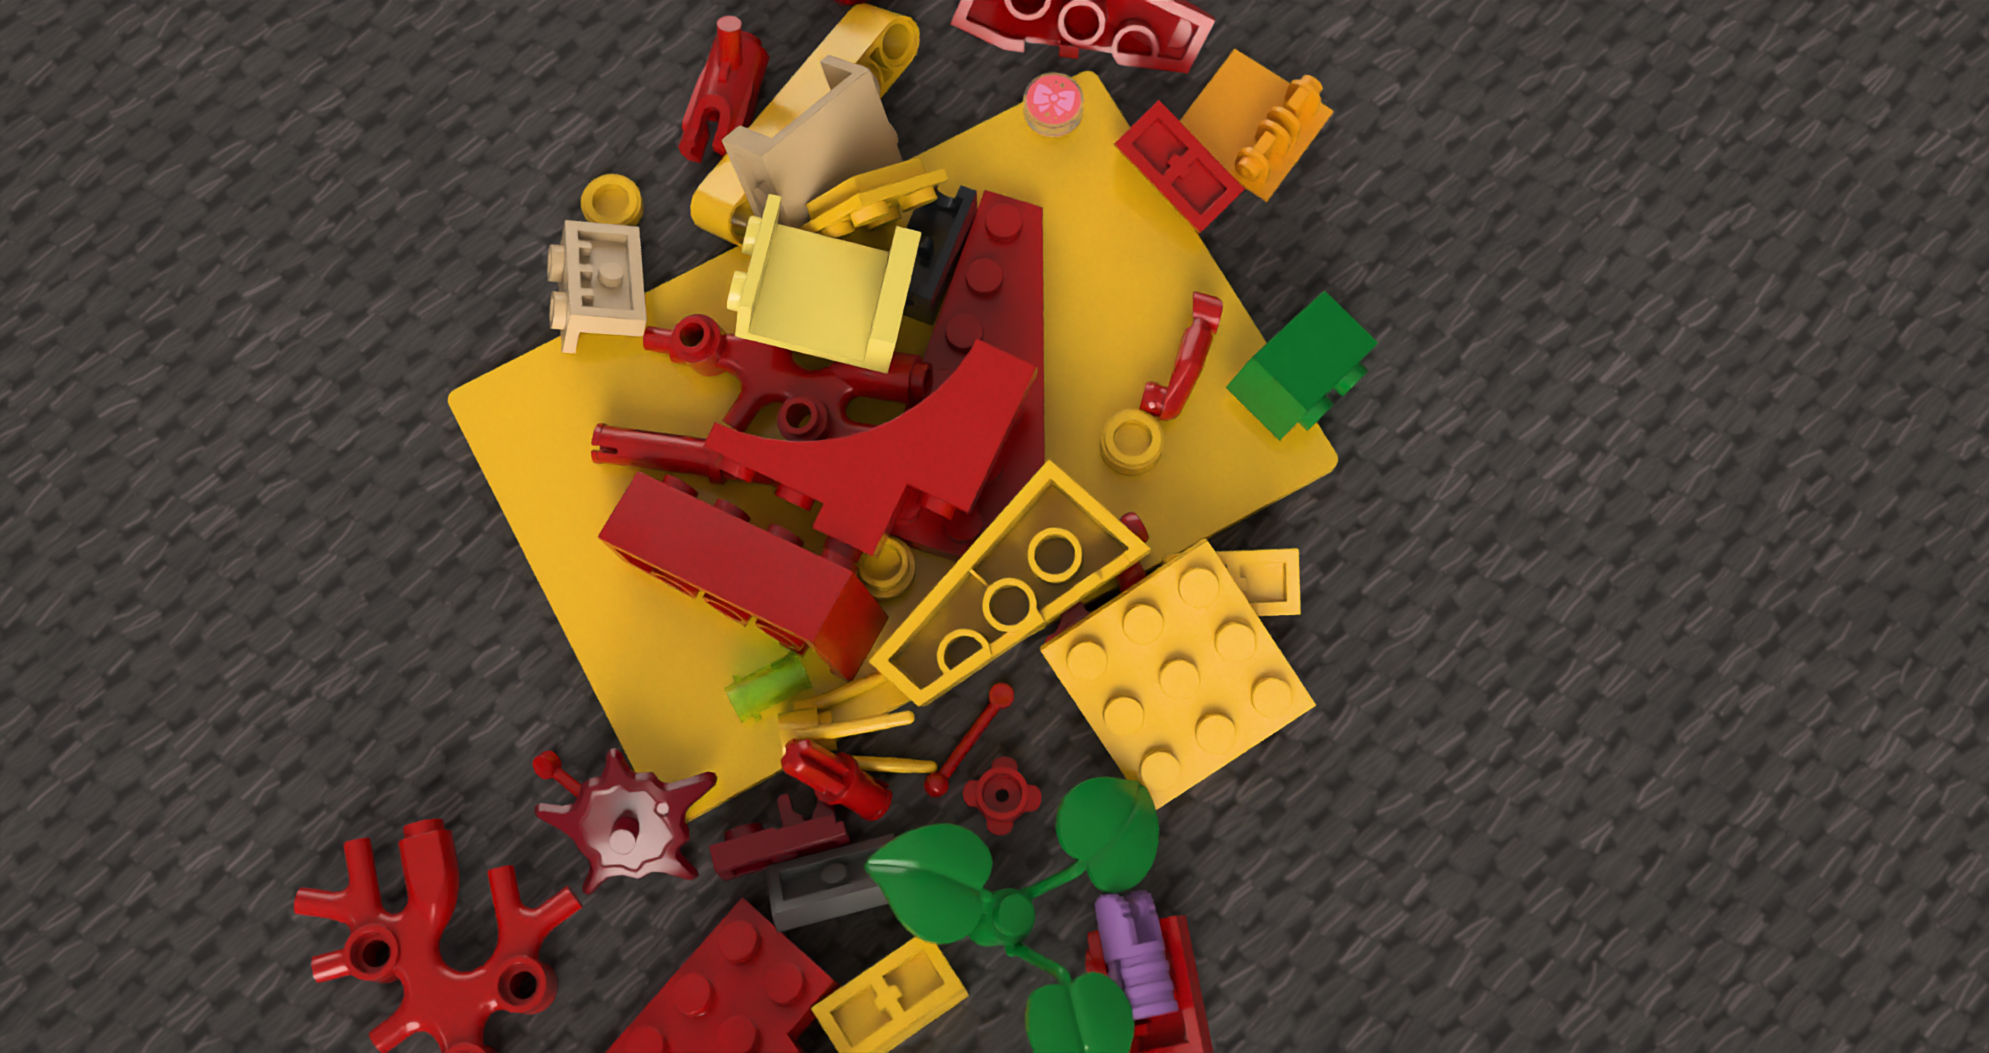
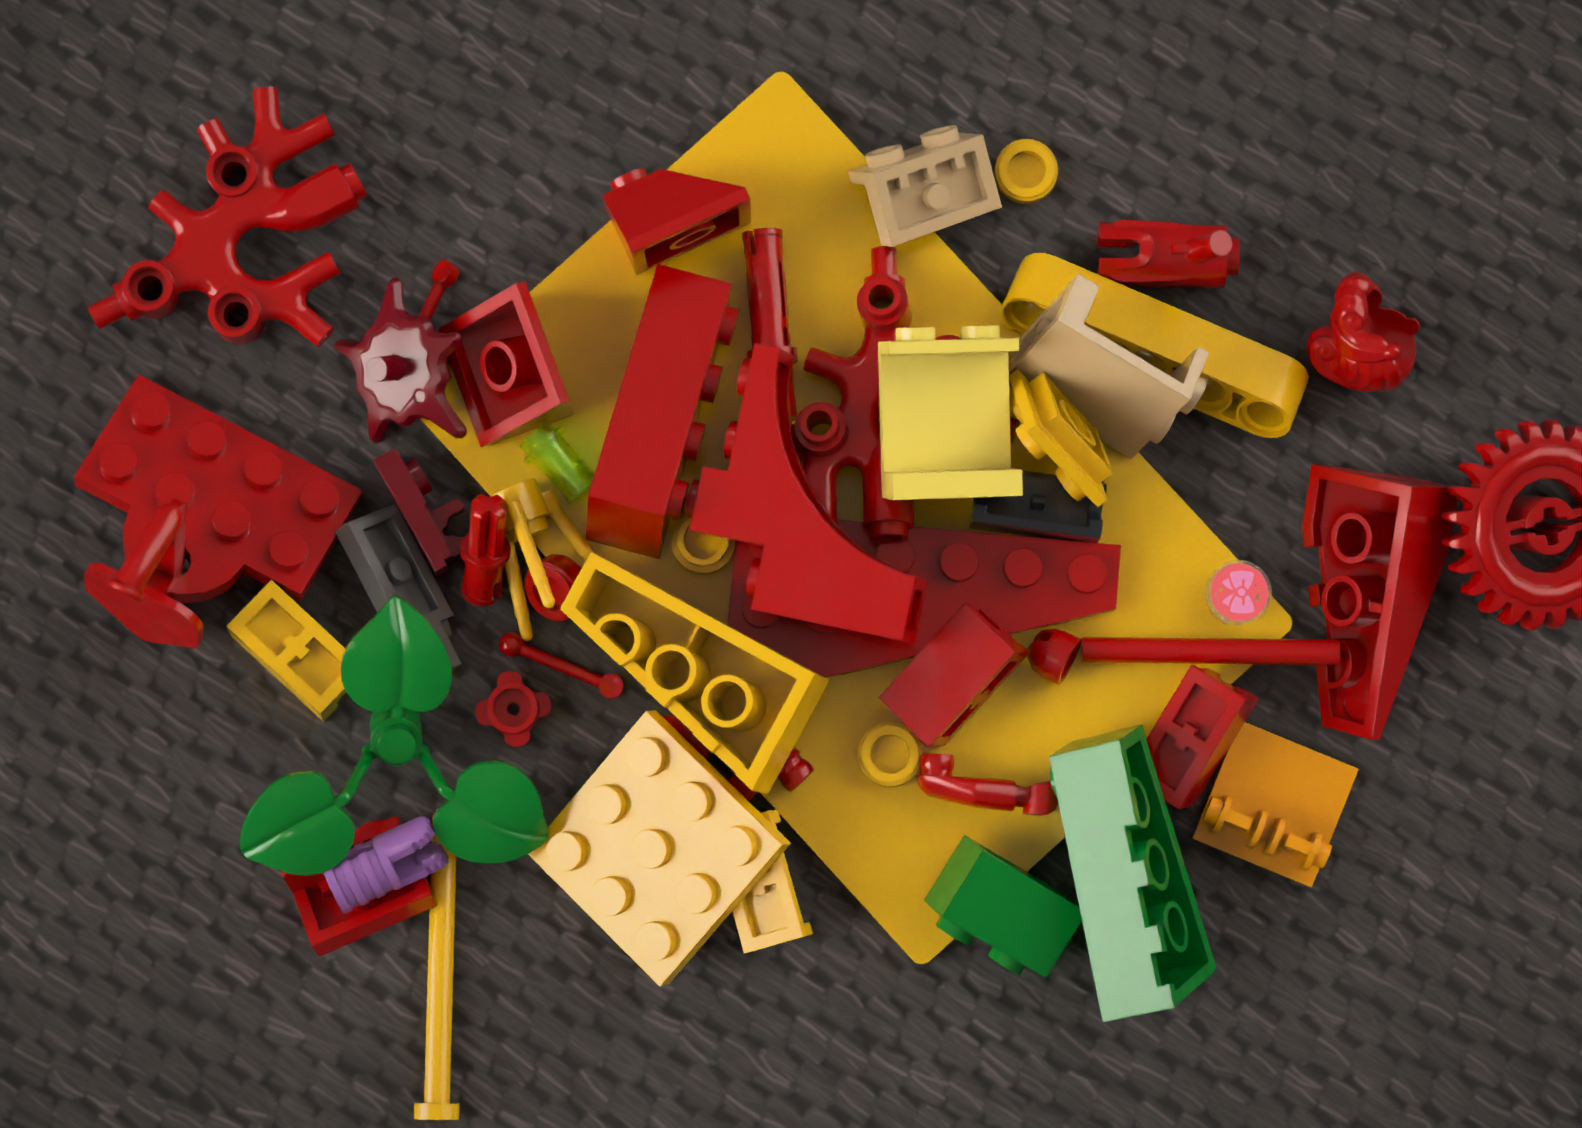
camera: 75 degrees right, 10 degrees up
(551, 515) = (672, 214): none -> red slope
(657, 710) = (506, 367): none -> red slope
(896, 739) = (561, 576): none -> red tile
(1072, 271) = (1053, 654): none -> red hinge
(1073, 356) = (953, 675): none -> red hinge
(1100, 141) = (1210, 651): none -> red bar
(1299, 244) = (1129, 876): none -> wedge
(1387, 964) = (440, 996): none -> yellow bar

